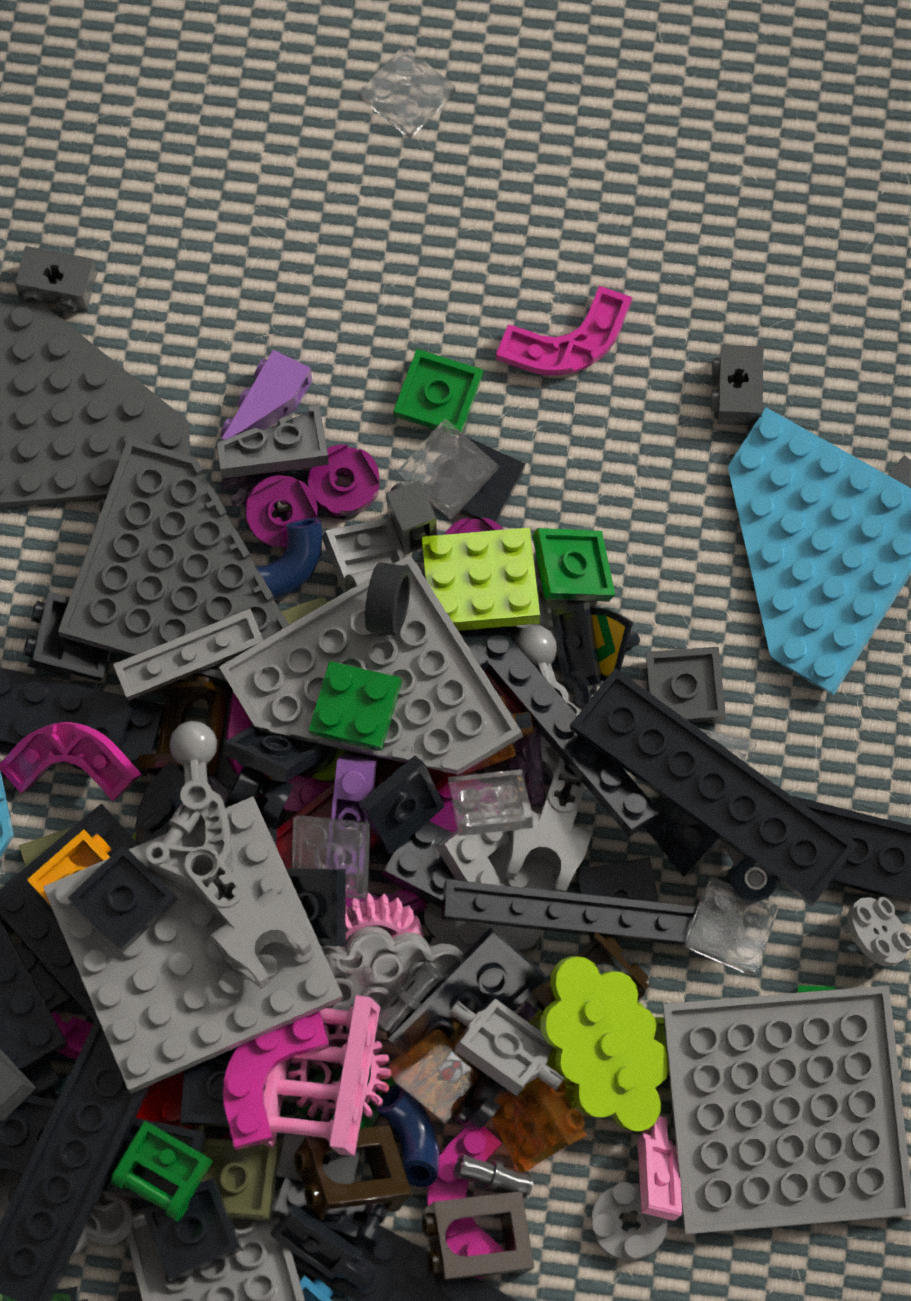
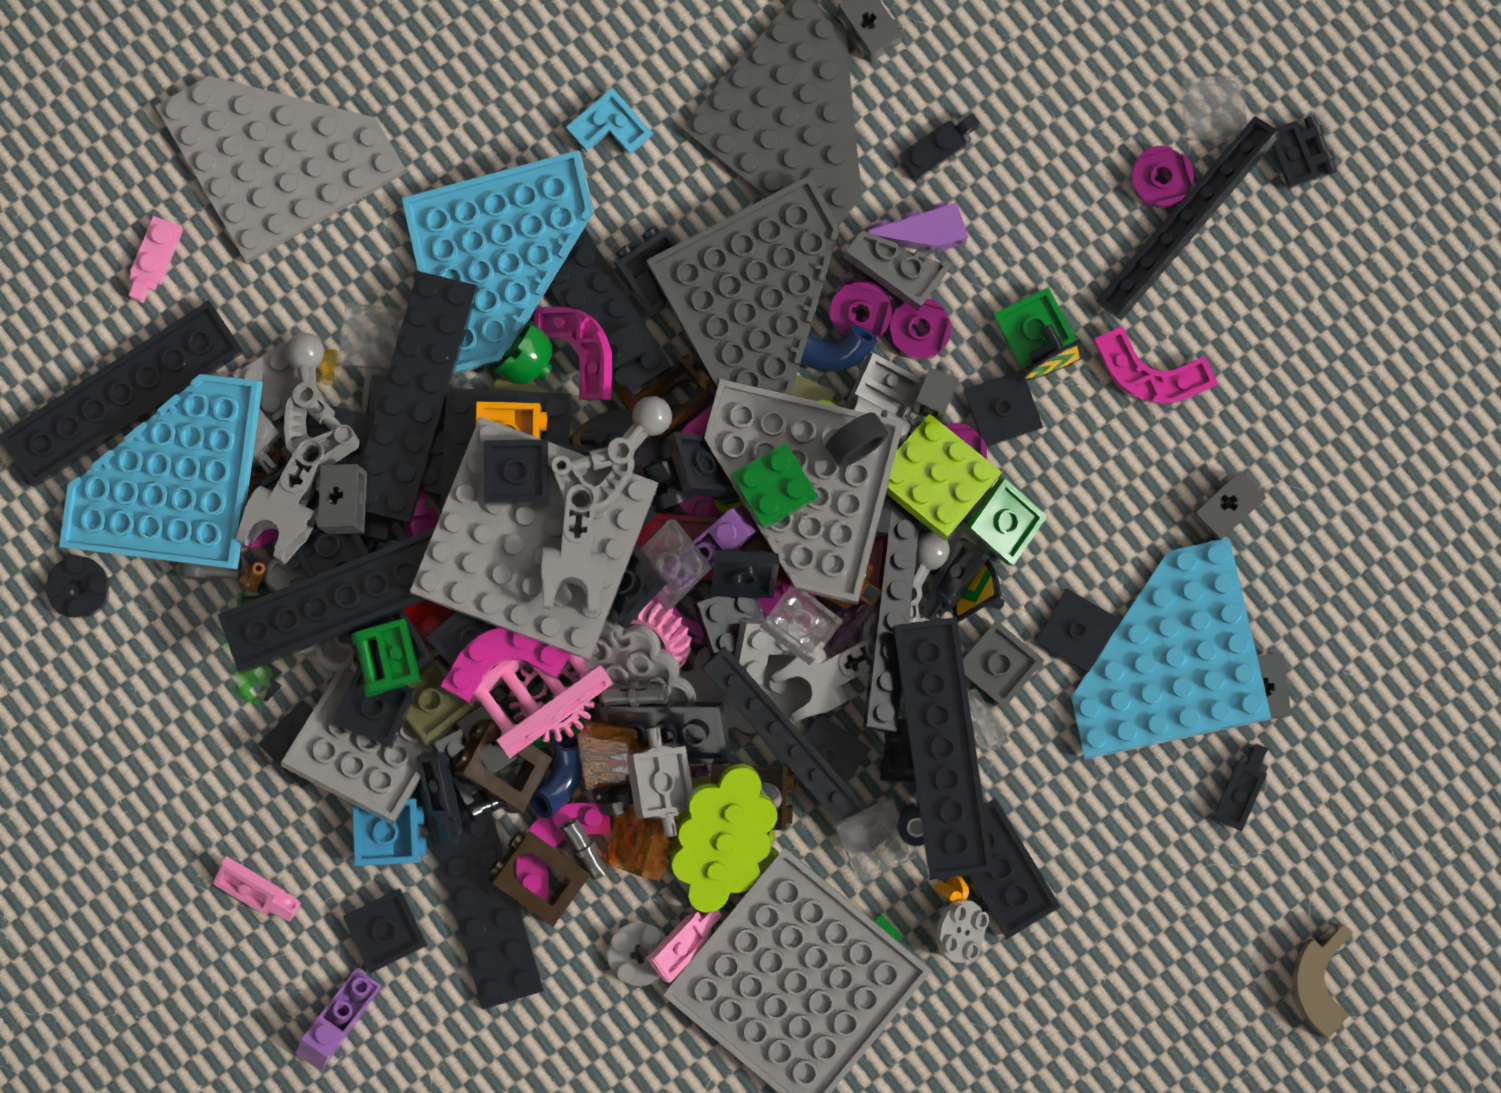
camera: 40 degrees right, 10 degrees up
(31, 811) = (527, 357): none -> green cylinder
(188, 654) = (710, 352): light grey plate -> none
(211, 324) = (938, 146): none -> black hinge
(415, 163) = (1169, 161): none -> magenta plate
(448, 468) = (988, 385): clear plate -> none
(474, 193) = (1188, 218): none -> black plate
(476, 397) = (1052, 356): none -> black shield
(507, 68) = (1294, 155): none -> black plate
(720, 599) = (1077, 630): none -> black plate
(836, 906) = (953, 890): none -> light orange plate

